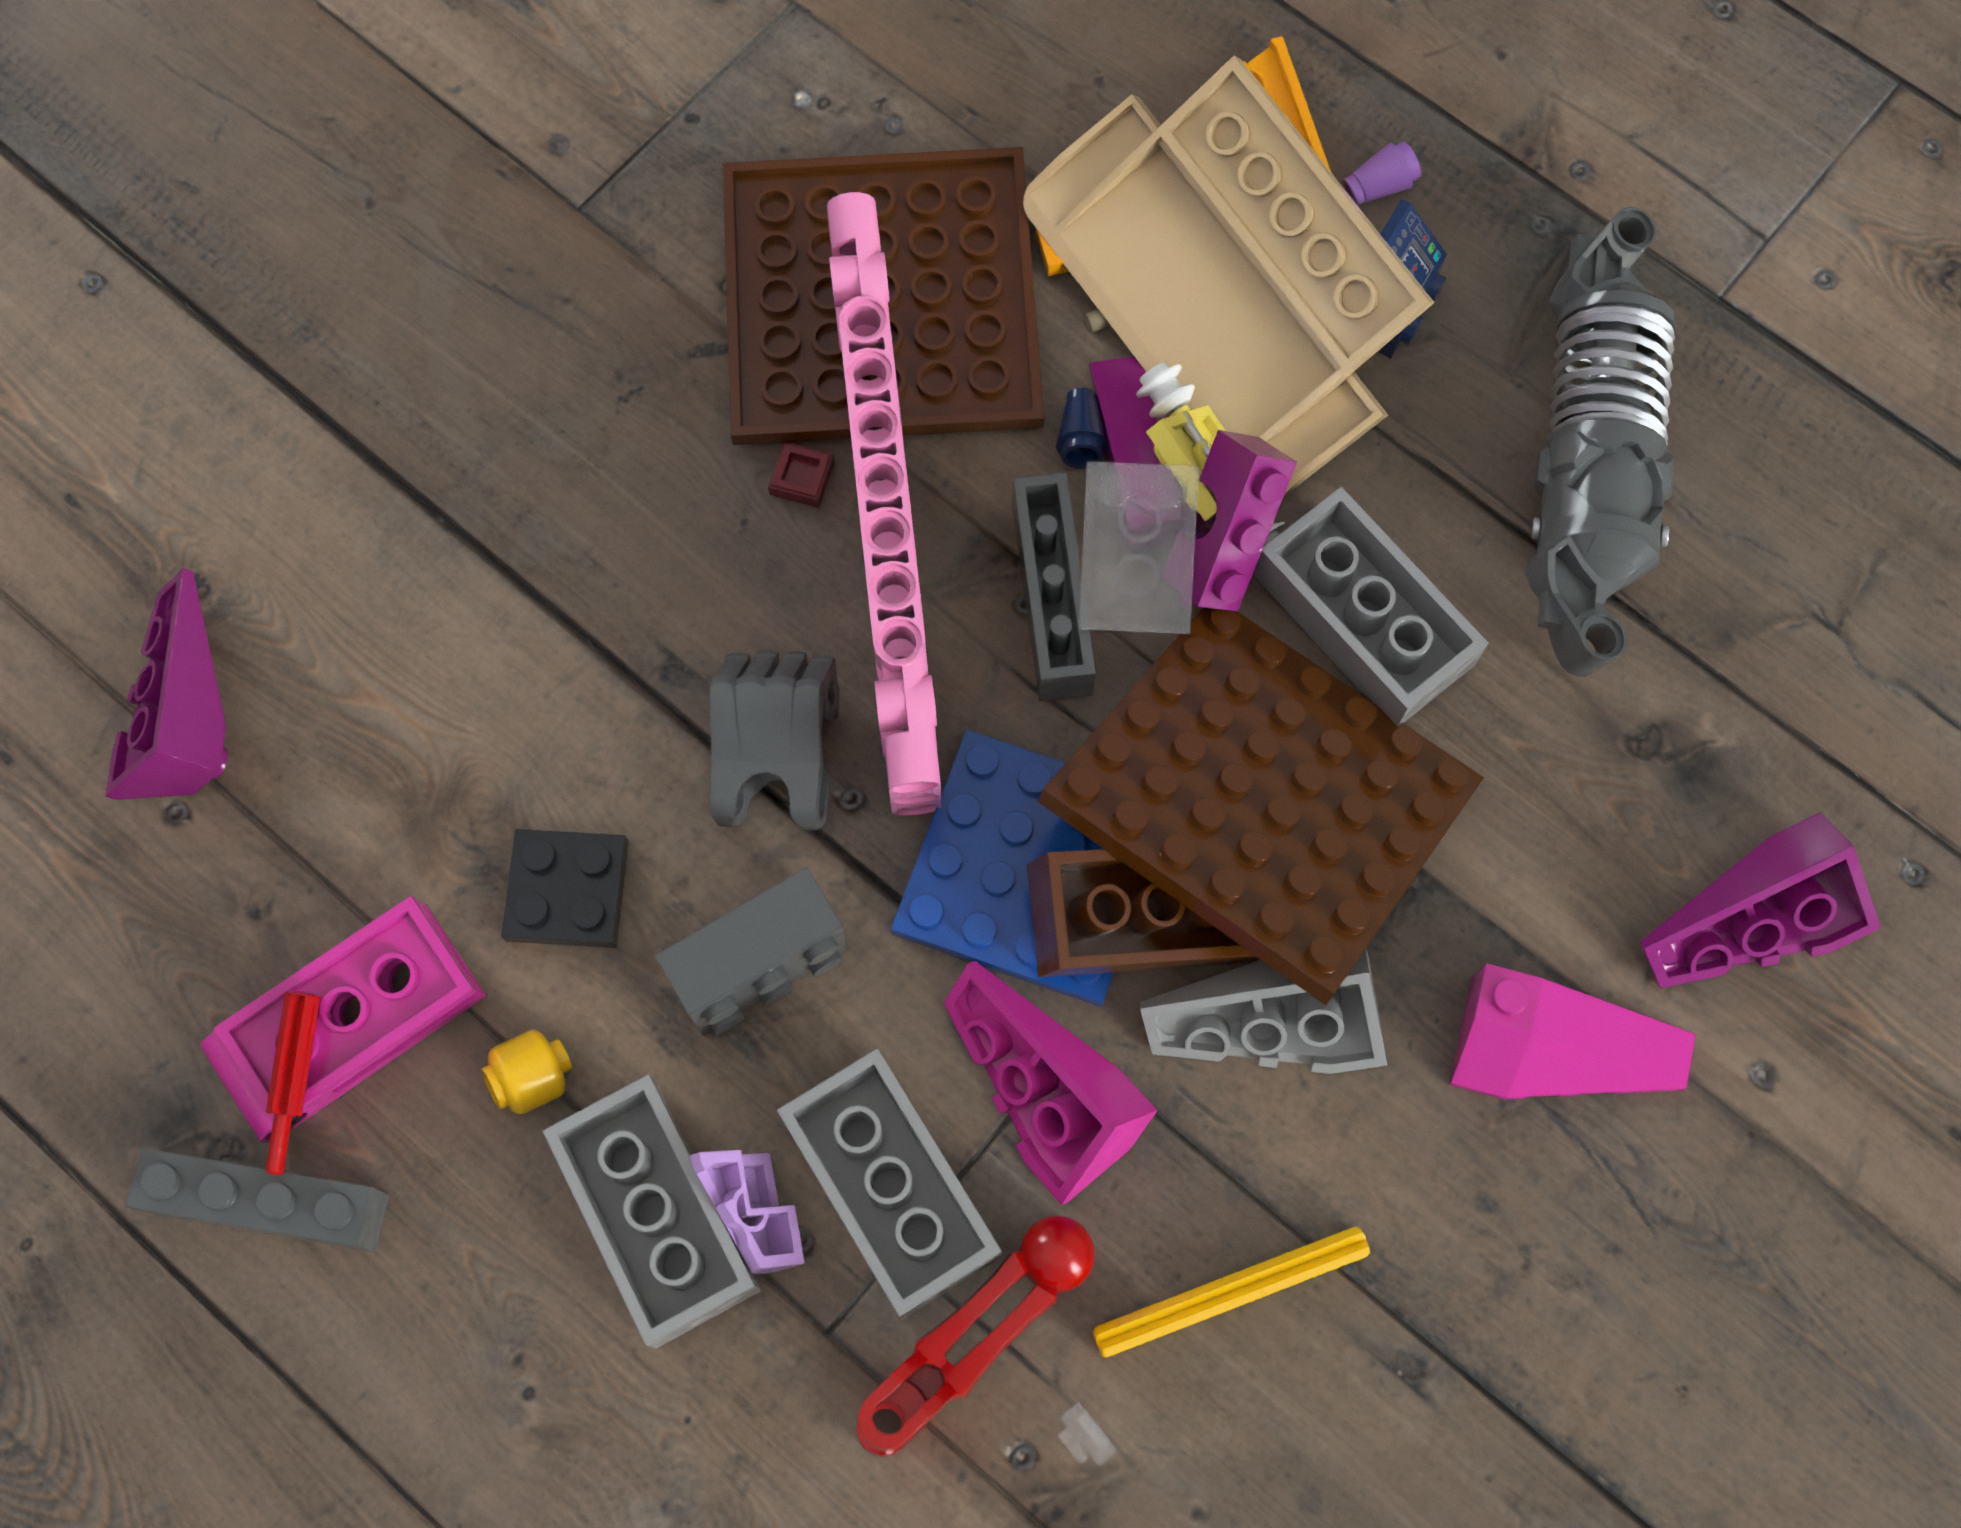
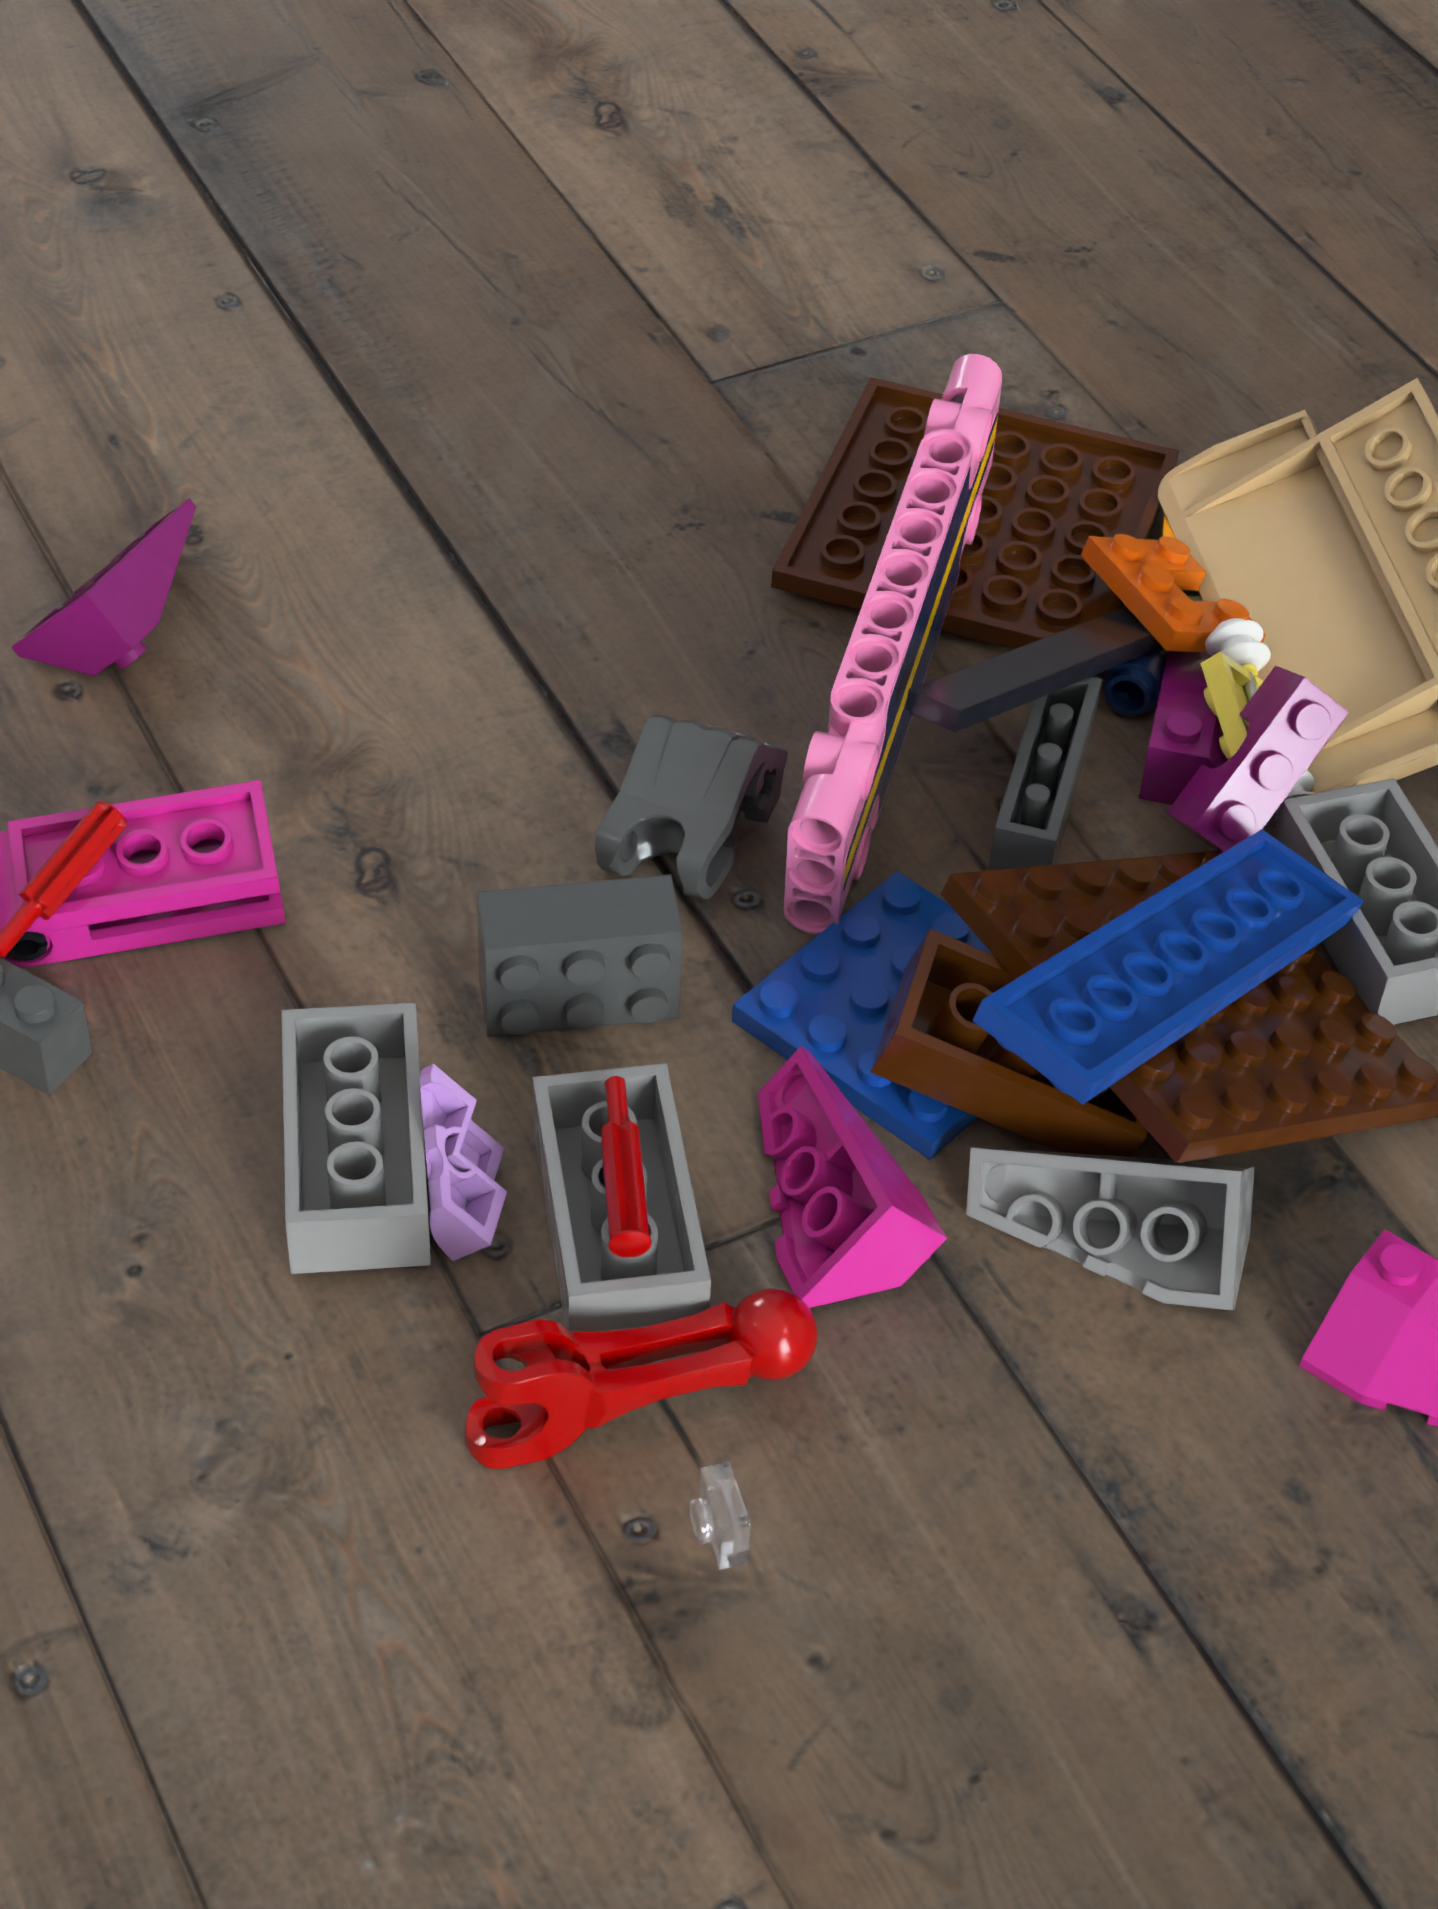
camera: 20 degrees right, 25 degrees down
(526, 1072) = (287, 980): yellow head -> none
(565, 888) = (413, 866): black plate -> none
(801, 474) = (824, 630): dark red tile -> none
(893, 1185) = (623, 1176): none -> red axle
(1025, 478) = (1031, 671): none -> black tile
(1045, 325) = (1150, 583): none -> orange plate
(1138, 546) = (1151, 735): clear slope -> none
(1230, 1291) = (955, 1454): yellow axle -> none
(1253, 815) = (1166, 965): none -> blue plate

